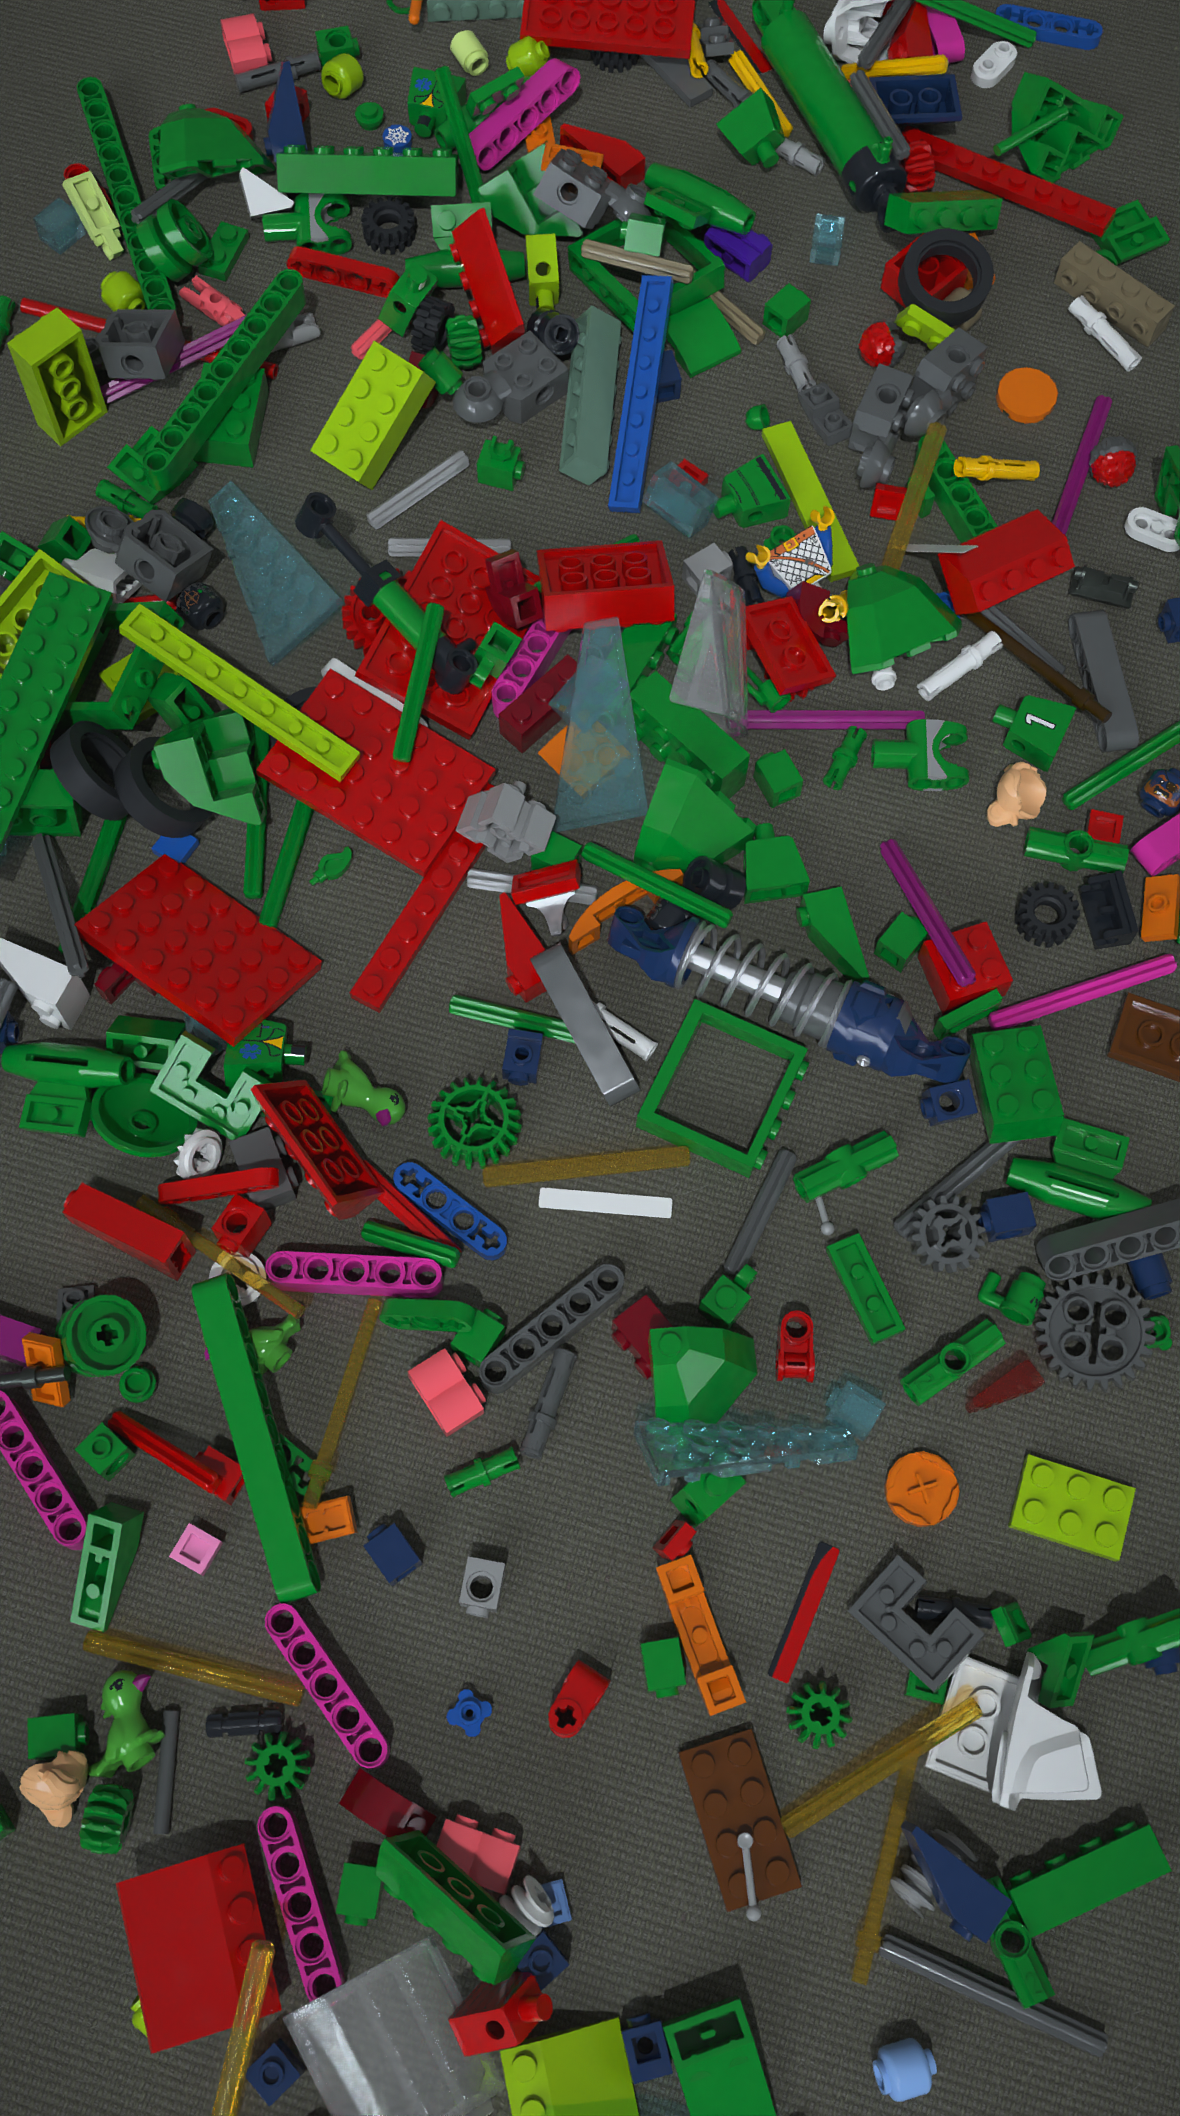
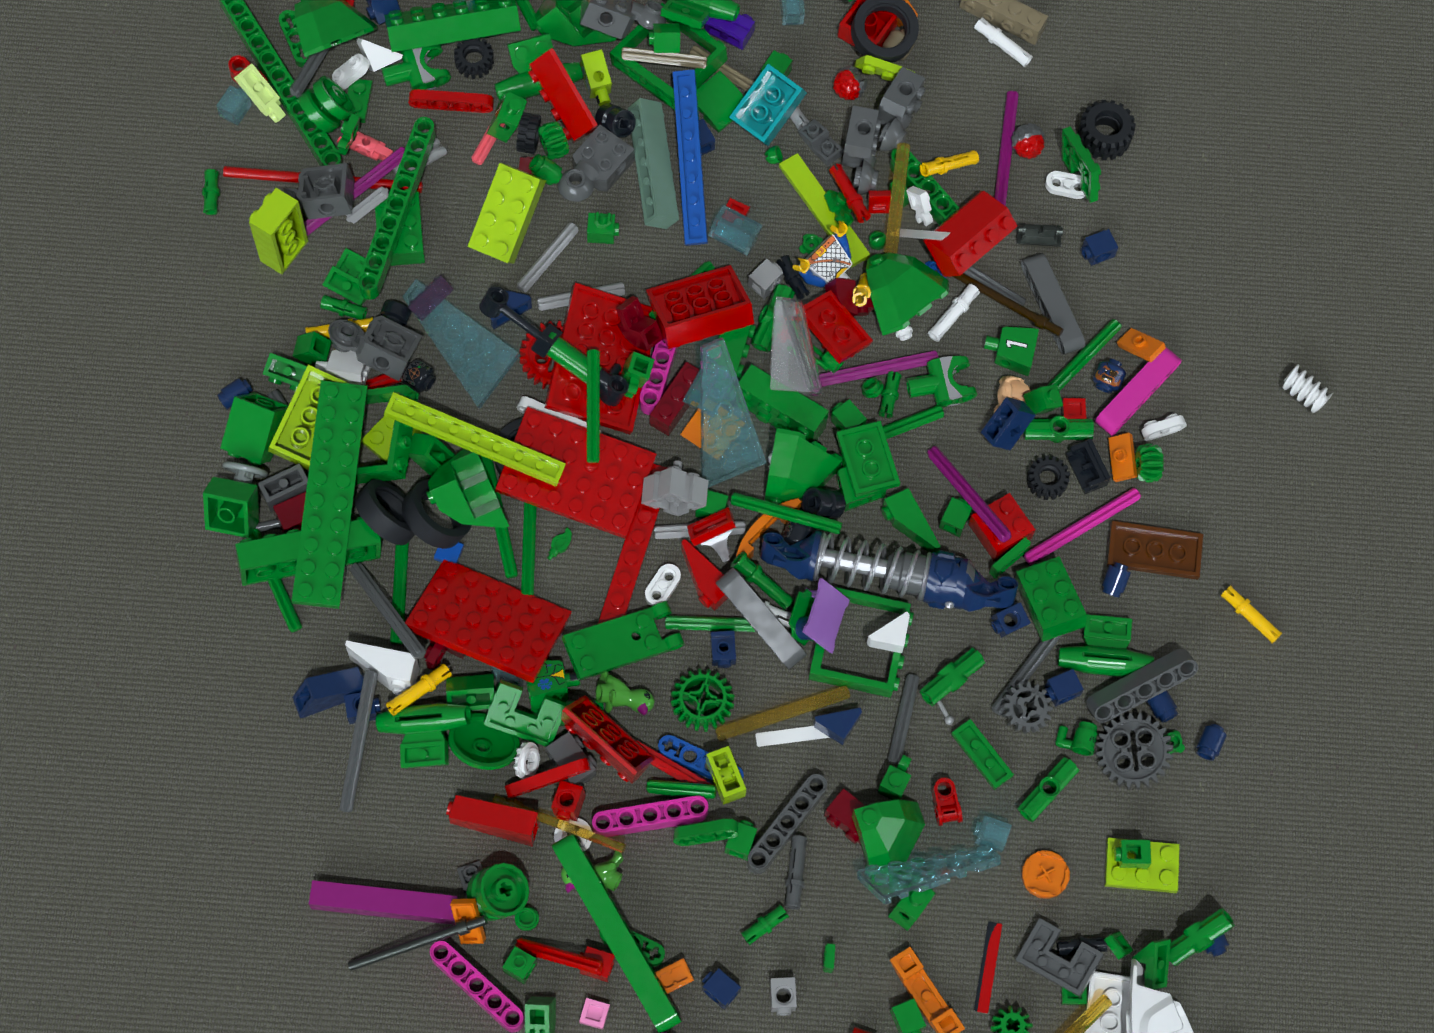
camera: 15 degrees left, 0 degrees up
(86, 1016) = (426, 684): none -> yellow pin
(122, 291) = (296, 150): lime head -> none
(190, 372) = (368, 204): none -> light grey axle
(196, 278) = (349, 132): none -> green plate
(222, 210) = (351, 71): none -> white plate
(241, 505) = (430, 298): none -> clear purple hinge
(321, 1469) = (662, 945): clear yellow bar -> none
(358, 534) = (517, 302): none -> dark blue slope
(364, 1018) = (611, 642): none -> green hinge
(447, 1392) = (729, 879): coral brick -> none
(456, 951) = (661, 585): none -> white plate
(476, 1237) = (725, 775): none -> lime brick
(565, 1544) = (829, 958): none -> green tile
(591, 960) = (754, 573): none -> green pin
(663, 1199) = (838, 724): none -> dark blue slope
(668, 1036) = (818, 615): none -> medium lavender piece
(675, 1540) = (898, 940): red plate -> none
(753, 494) = (784, 215): green torso -> none
(764, 346) = (768, 104): none -> teal brick
(767, 1086) = (891, 636): none -> white slope
(791, 833) = (868, 459): none -> green plate
(822, 743) = (872, 388): none -> green plate
(832, 494) = (838, 205): none -> green plate
(836, 805) = (912, 422): none -> green axle
(852, 488) = (854, 200): none -> red pin
(874, 551) = (877, 243): none -> green hinge
(944, 510) = (920, 203): none -> white plate
(1005, 825) = (1008, 423): none -> dark blue brick
(1015, 1383) = (1092, 793): clear red slope -> none
(1026, 395) = (958, 99): orange tile -> none
(1062, 805) = (1043, 399): none -> green brick
(1075, 1487) = (1140, 849): none -> green brick
(1117, 1077) = (1116, 579): none -> dark blue brick

